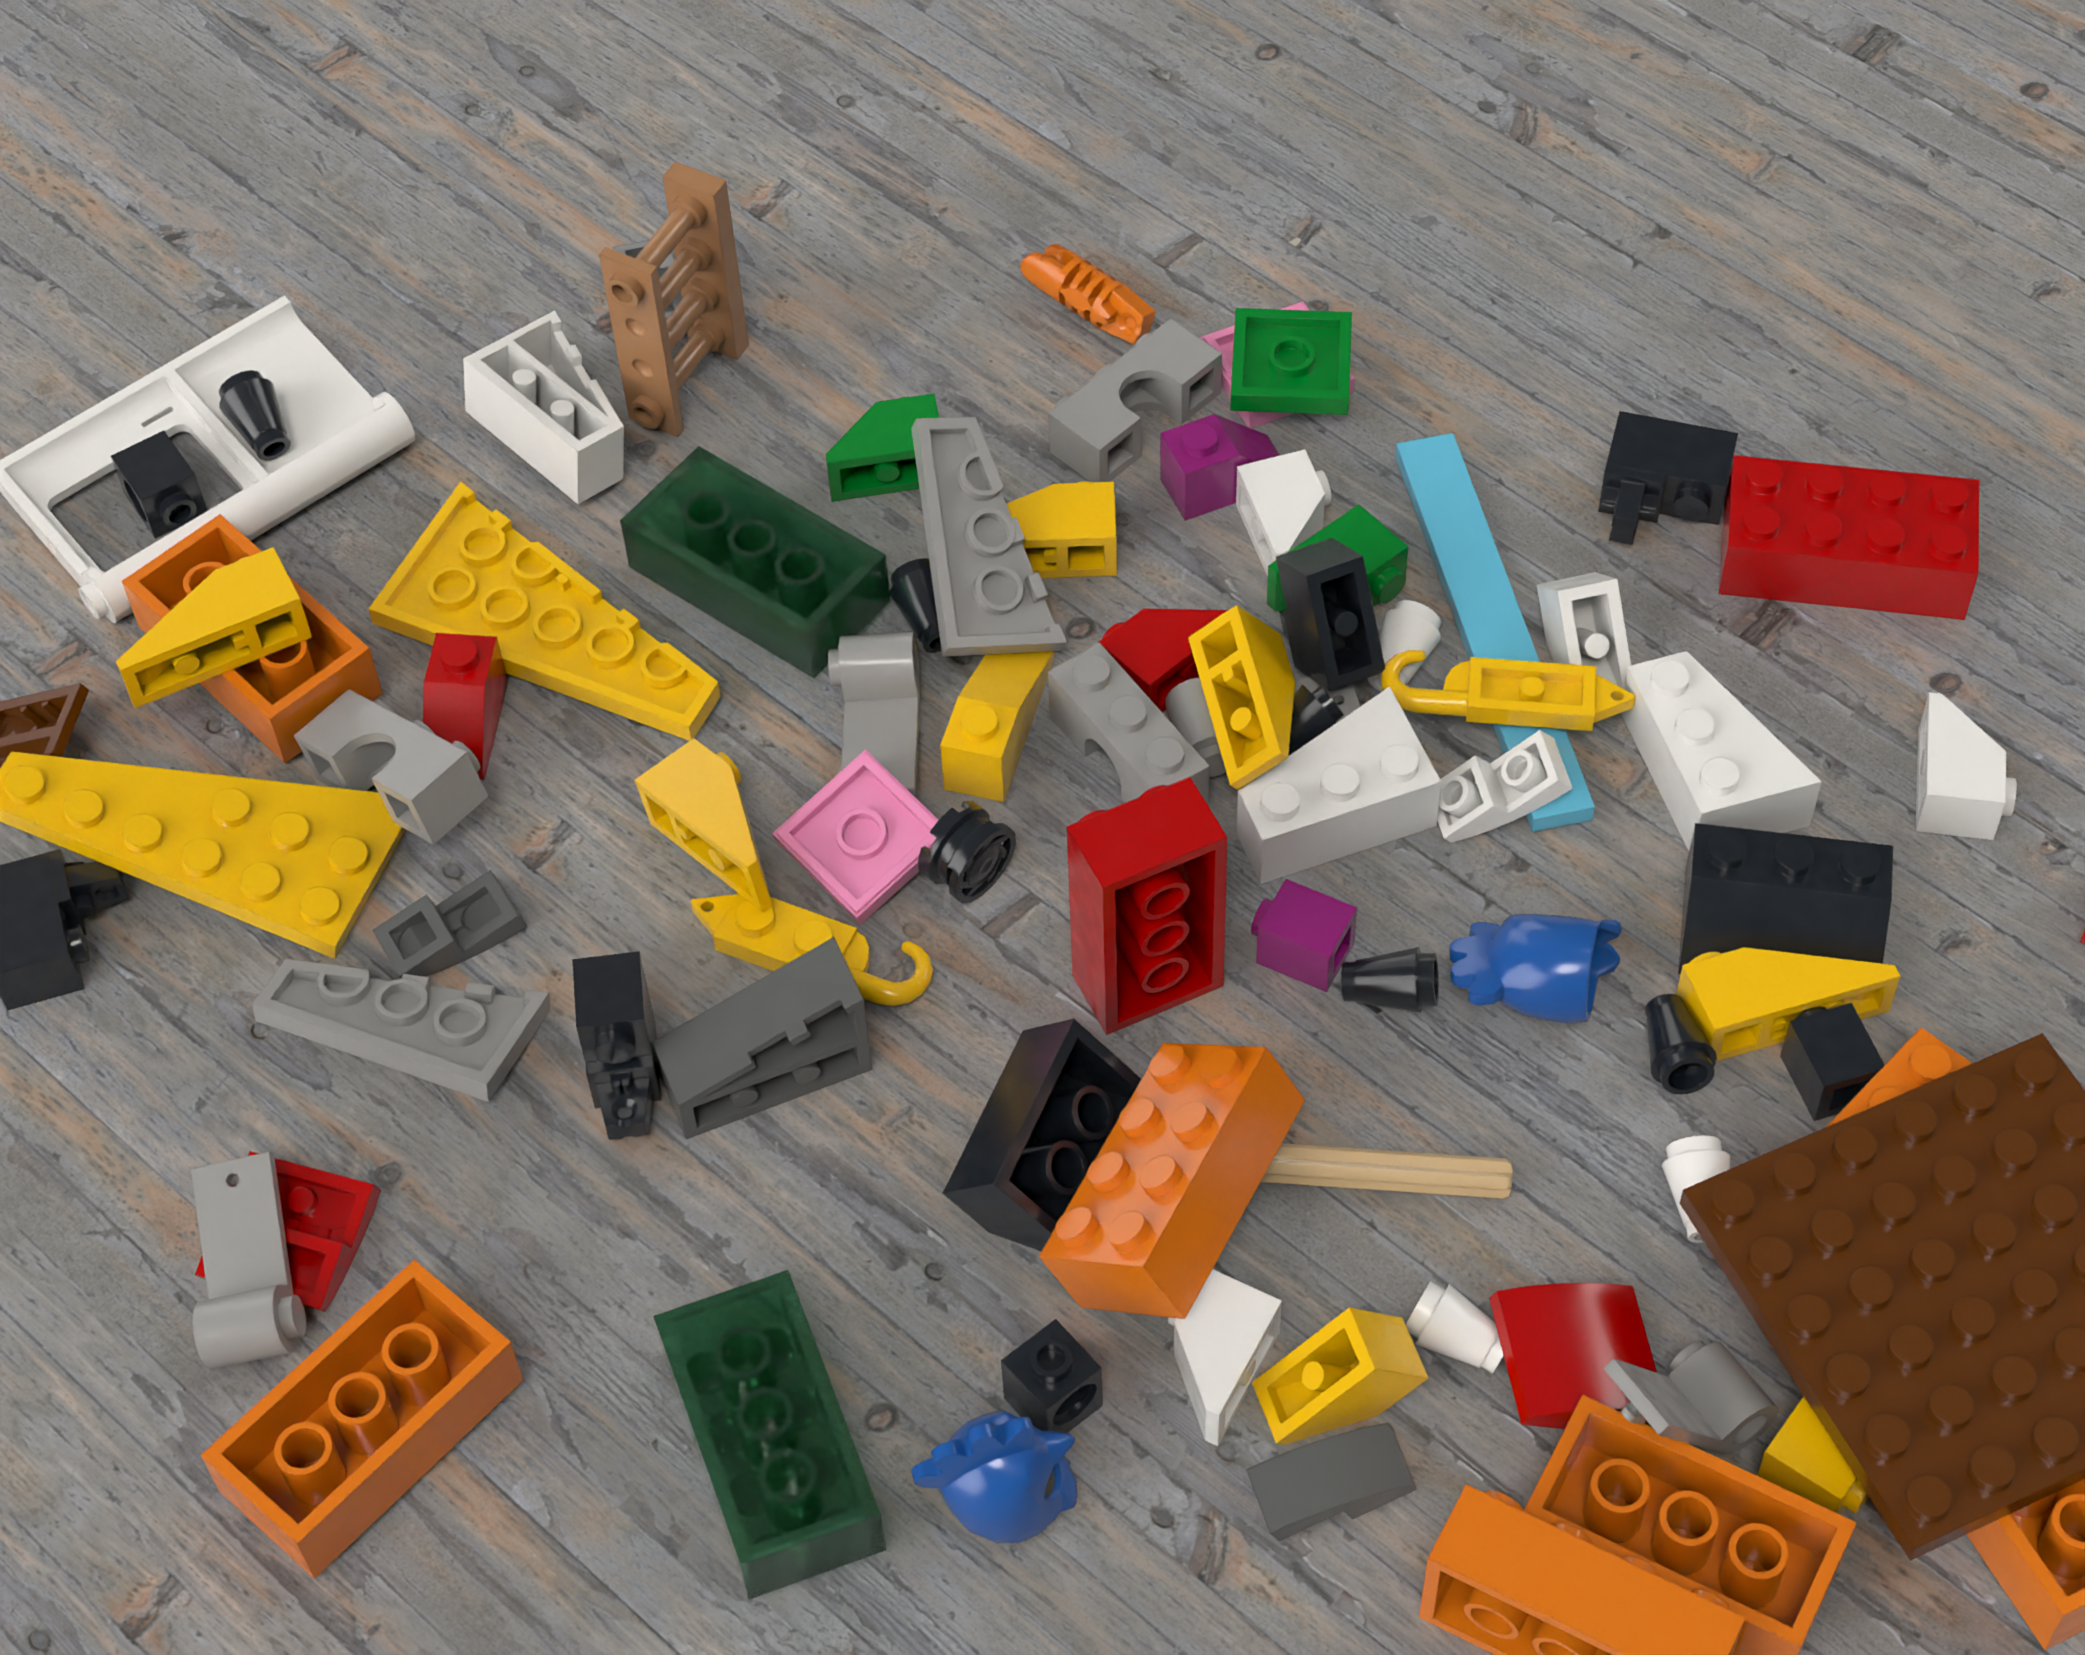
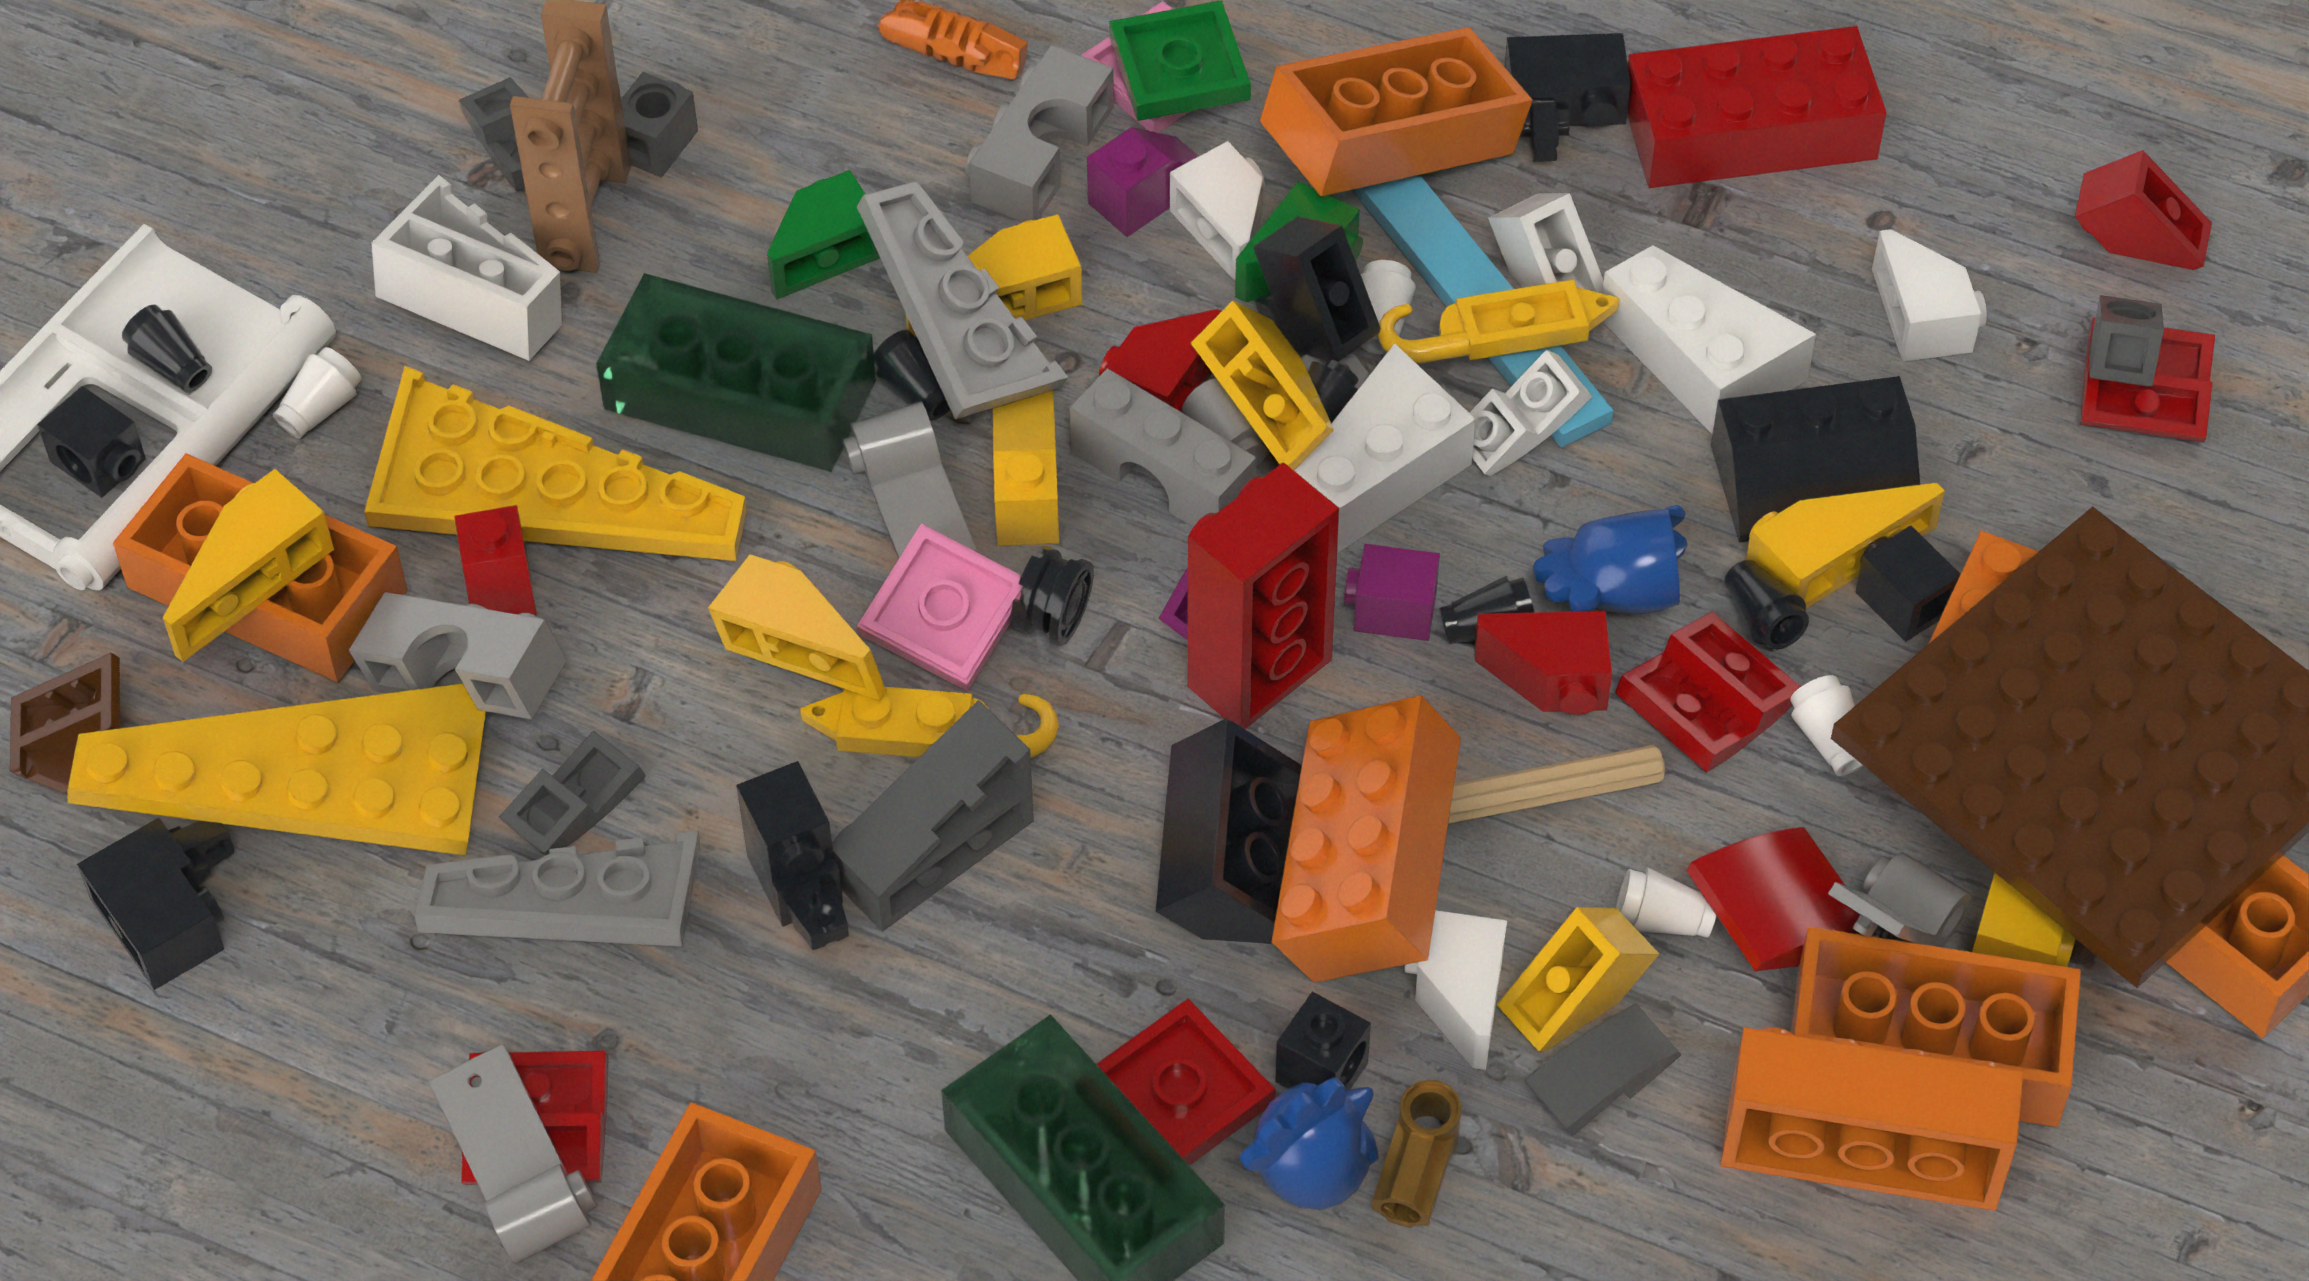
camera: 20 degrees left, 0 degrees up
(375, 487) = (317, 392): none -> white cone
(781, 308) = (657, 122): none -> dark grey brick
(902, 1377) = (1188, 1081): none -> red plate
(1107, 1520) = (1418, 1155): none -> pearl gold piece
(1435, 1041) = (1549, 657): none -> red slope
(1478, 457) = (1395, 110): none -> orange brick
(1587, 1118) = (1708, 691): none -> red slope

